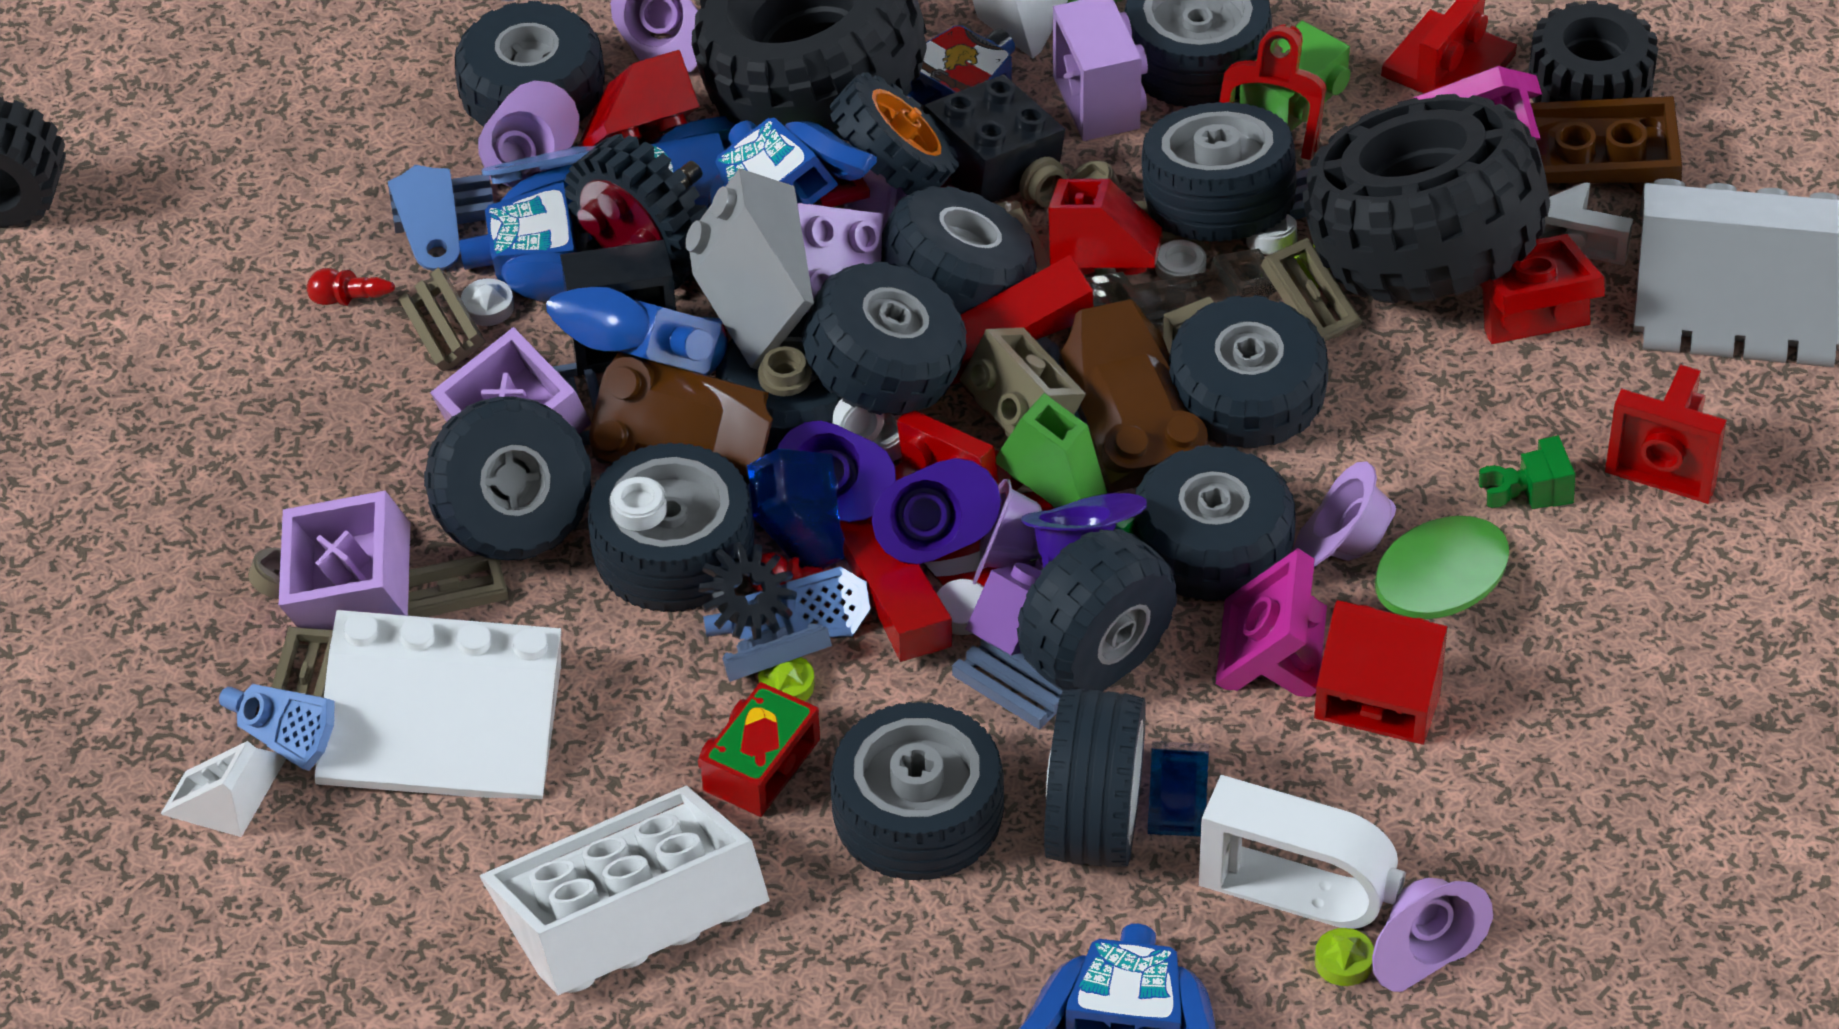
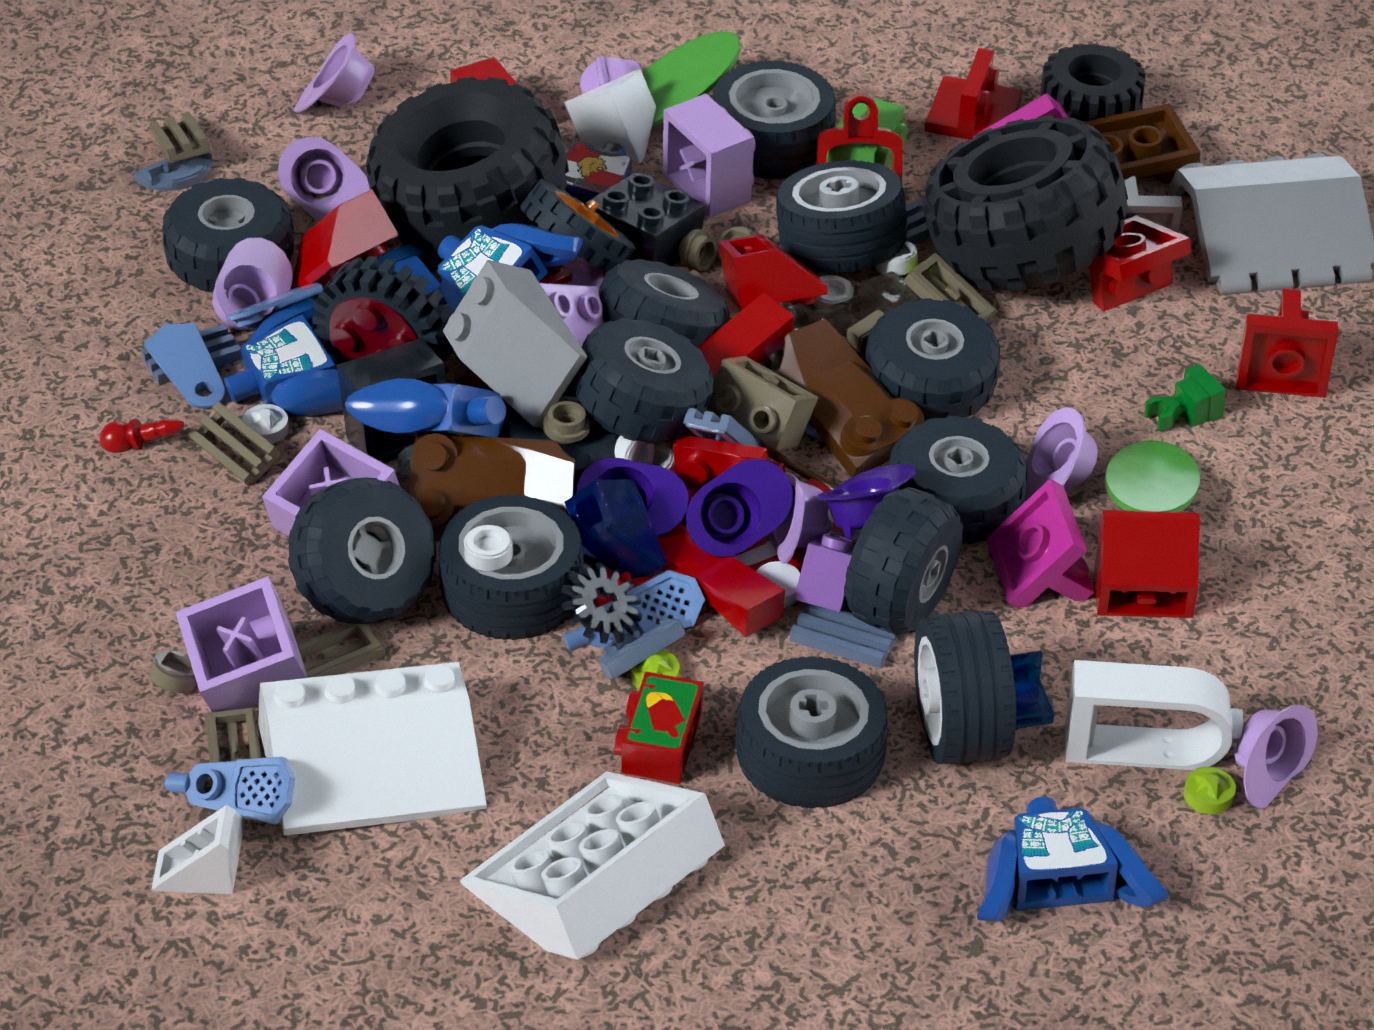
camera: 20 degrees left, 5 degrees down
(956, 416) = (714, 428): none -> sand blue tile
(1053, 454) = (812, 447): bright green slope -> none

